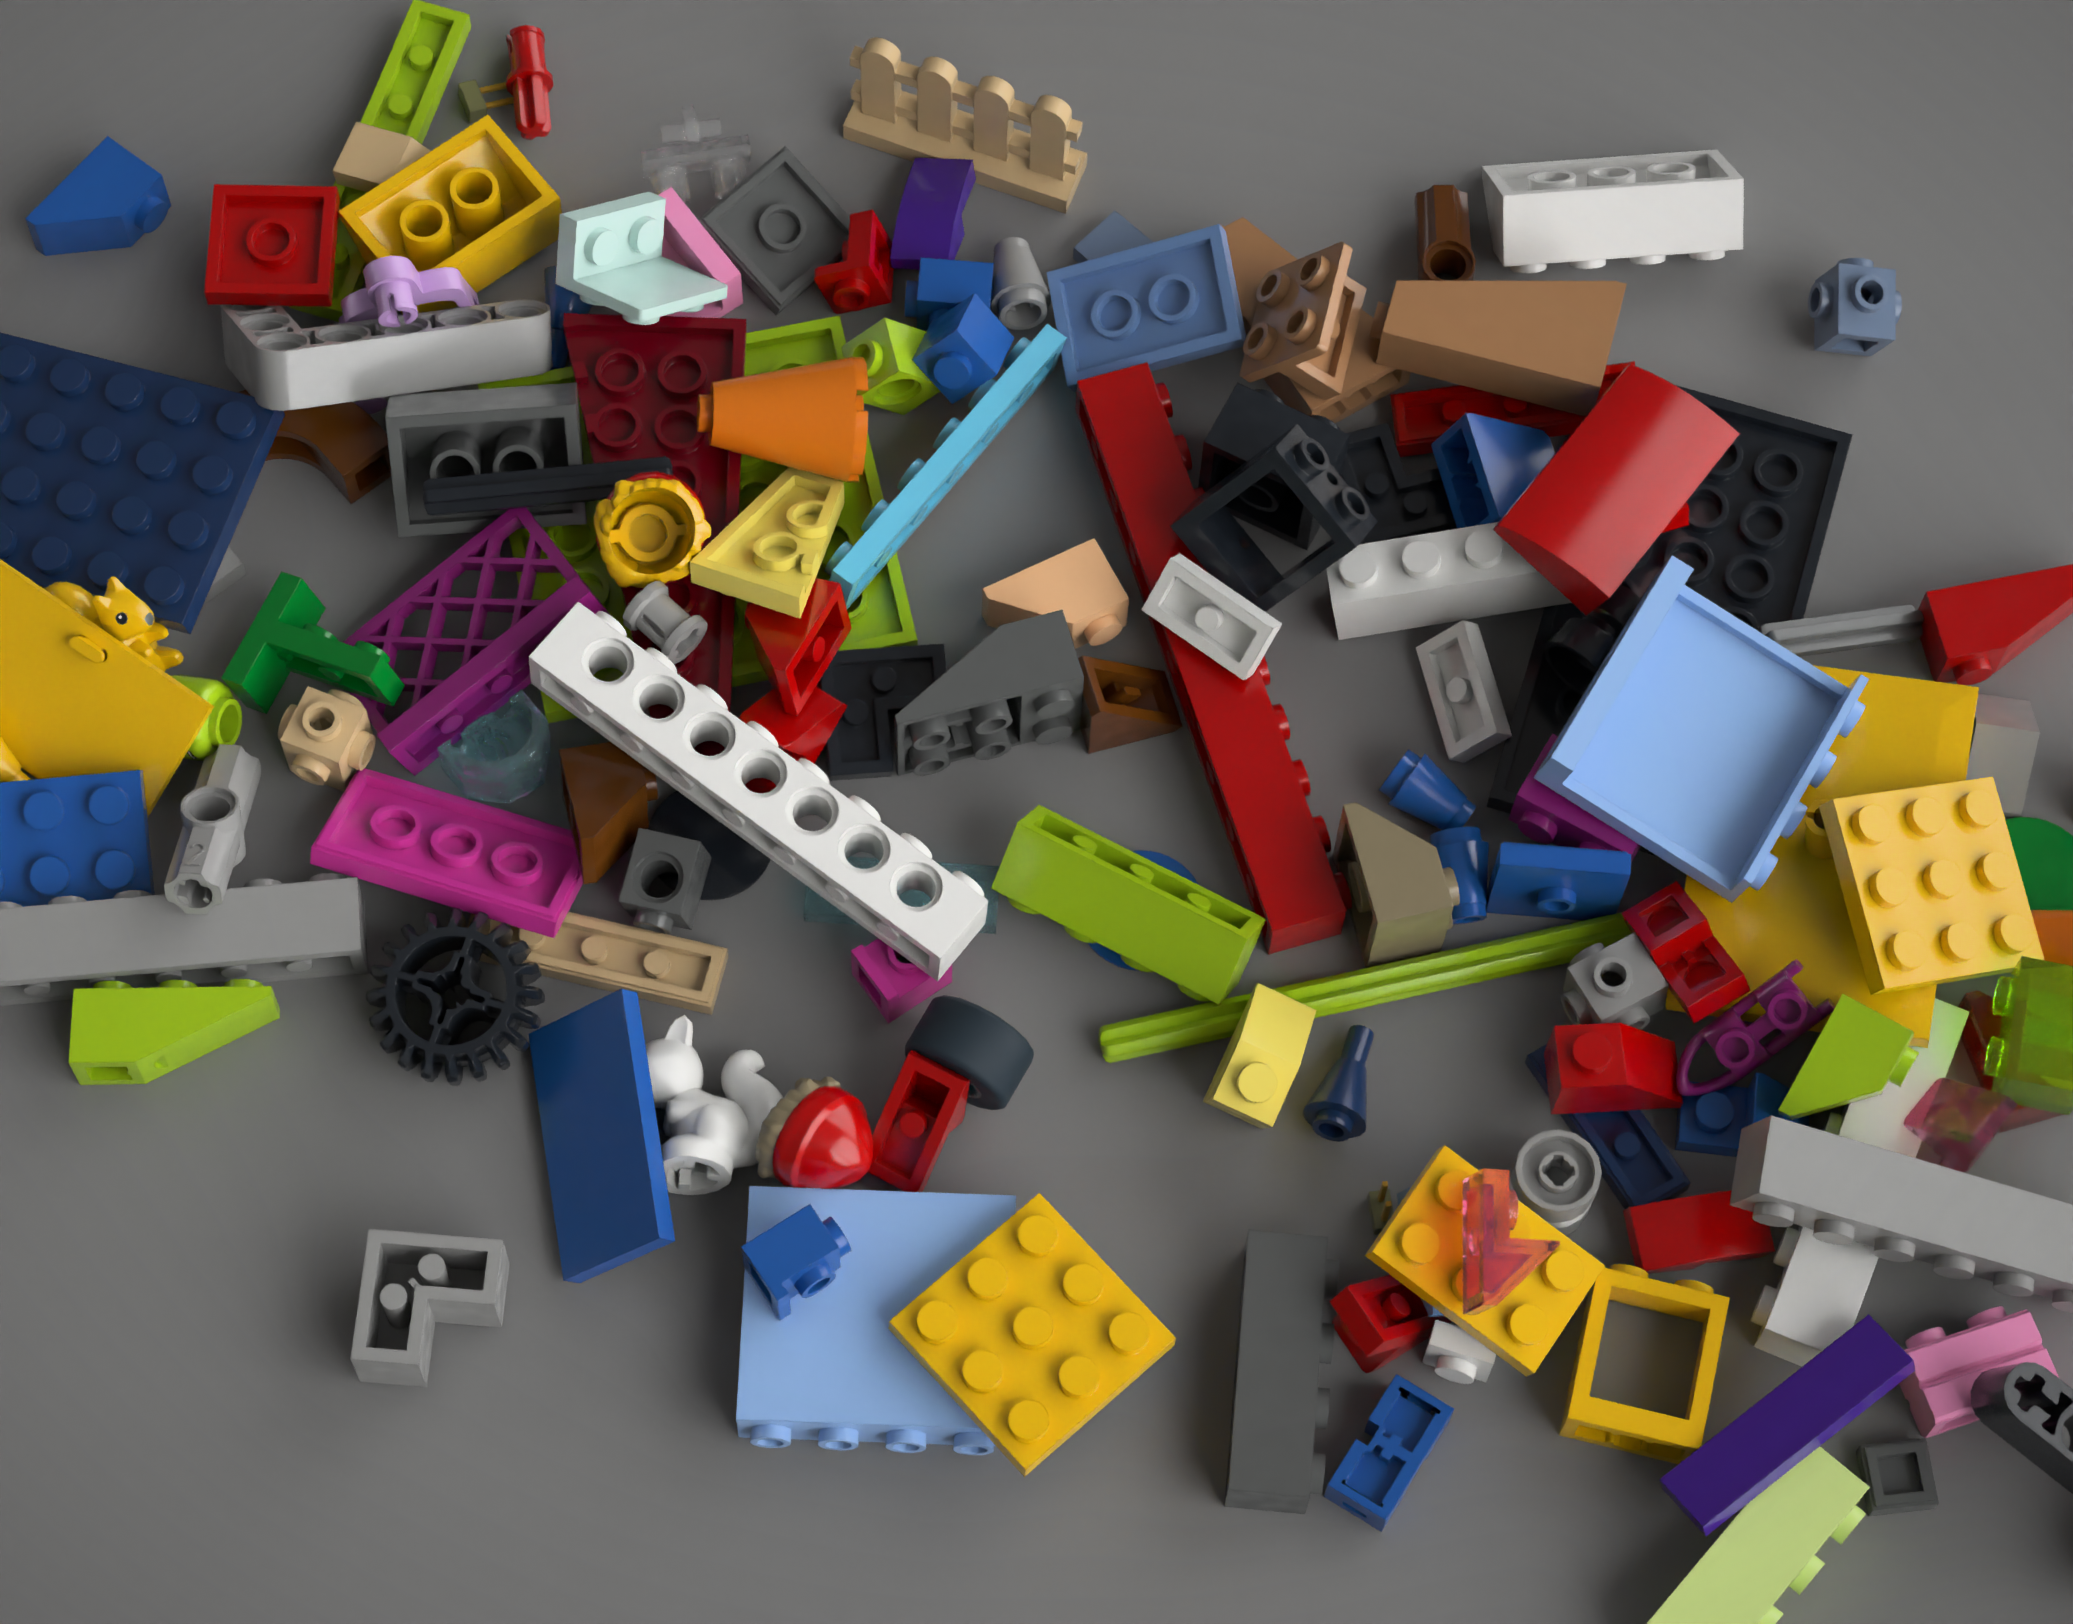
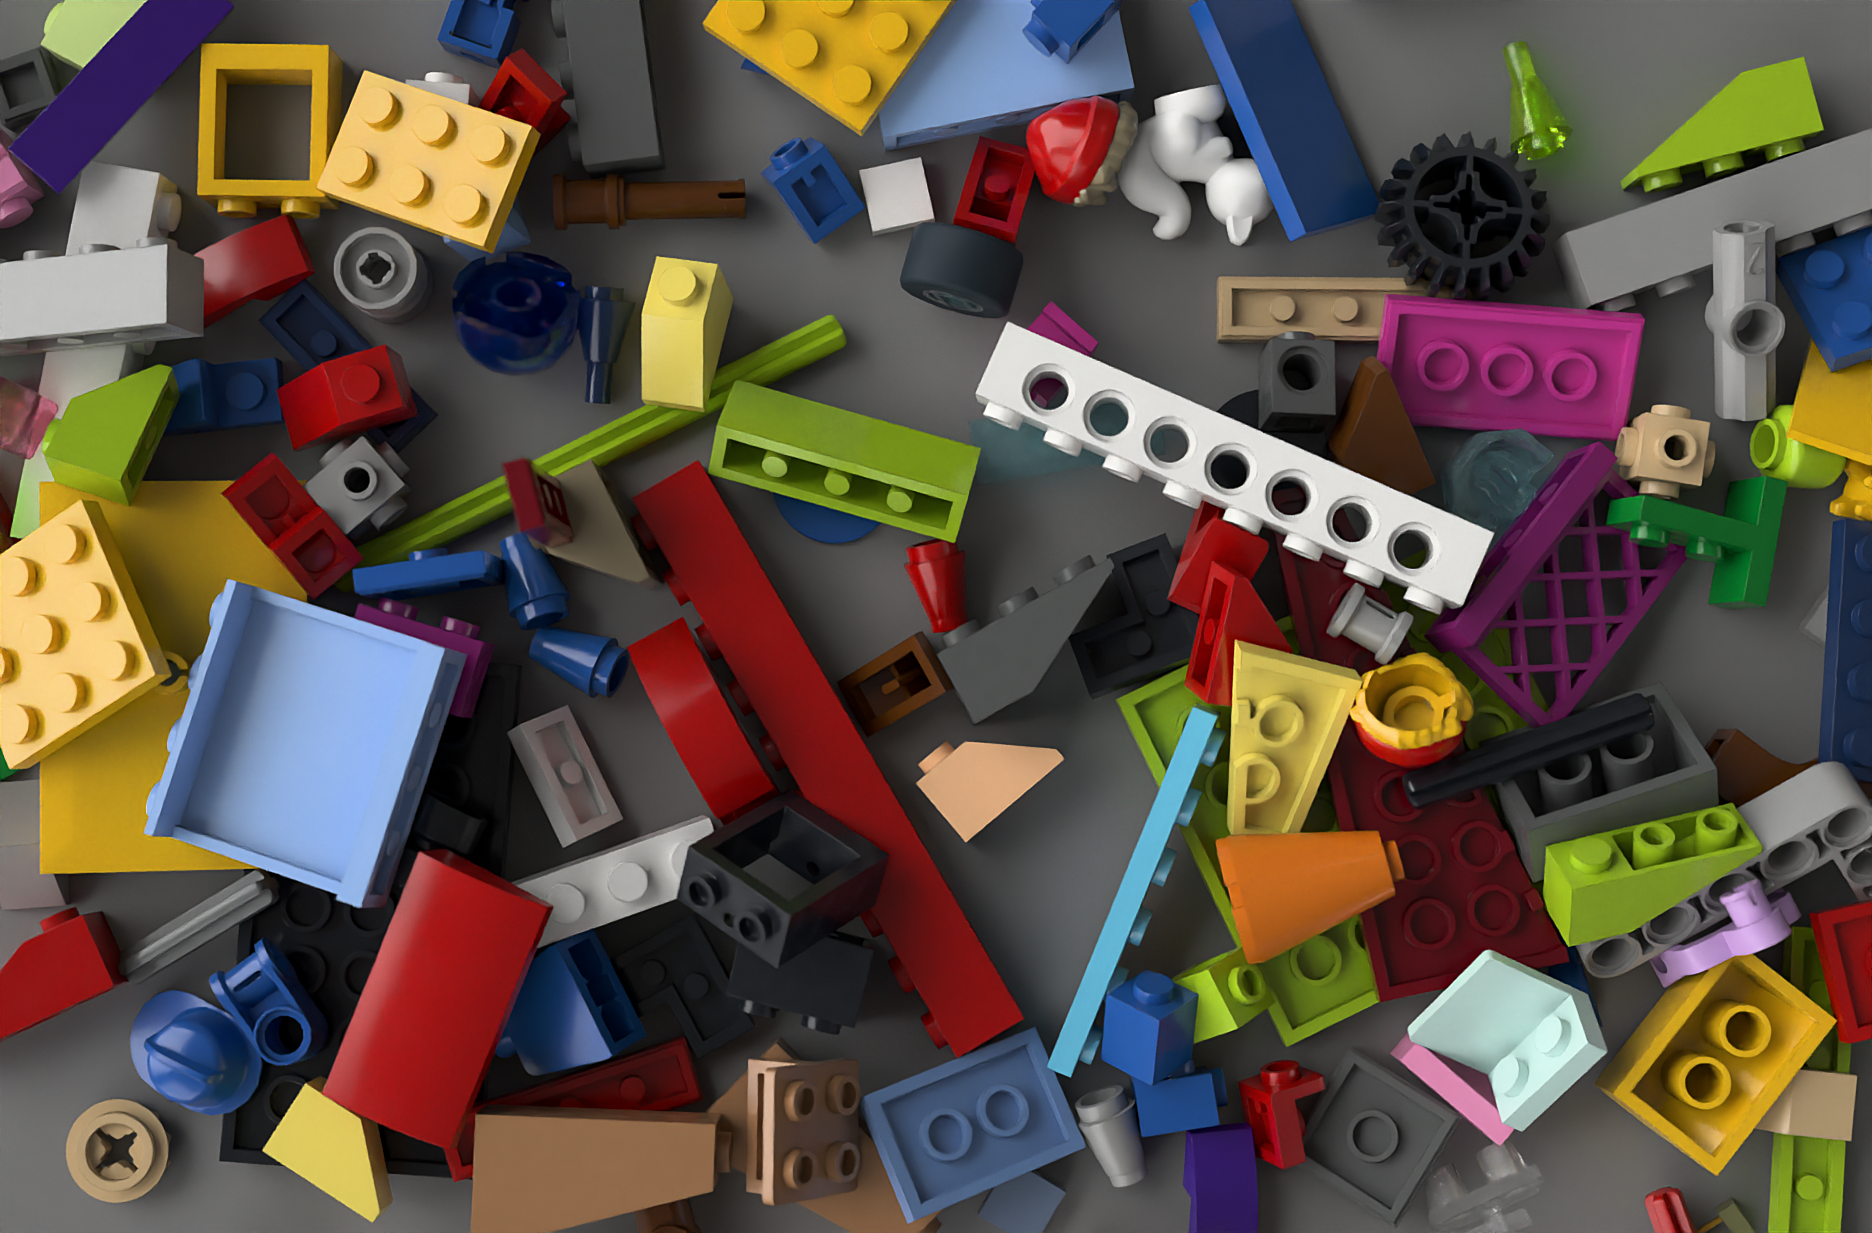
camera: 170 degrees right, 20 degrees up
(349, 1086) = (1535, 118): none -> clear neon green cone
(474, 359) = (1635, 873): none -> lime slope
(1014, 1160) = (896, 196): none -> white tile
(1062, 780) = (940, 582): none -> red cone
(1100, 1184) = (812, 187): none -> blue bracket
(1211, 616) = (825, 767): white plate -> none
(1272, 1209) = (617, 201): none -> reddish brown pin
(1323, 700) = (701, 721): none -> red arch
(1380, 1207) = (544, 229): olive piece -> none
(1420, 1104) = (515, 313): none -> clear blue cylinder
(1434, 842) = (538, 503): none -> dark red tile
(1490, 1257) = (410, 136): clear pink slope -> none
(1739, 1044) = (225, 443): magenta piece -> none
(1749, 404) = (334, 1151): none -> light yellow slope
(1783, 549) = (268, 1002): none -> blue piece
(1862, 531) = (194, 1053): none -> blue piece
(1950, 448) = (89, 1147): none -> tan gear

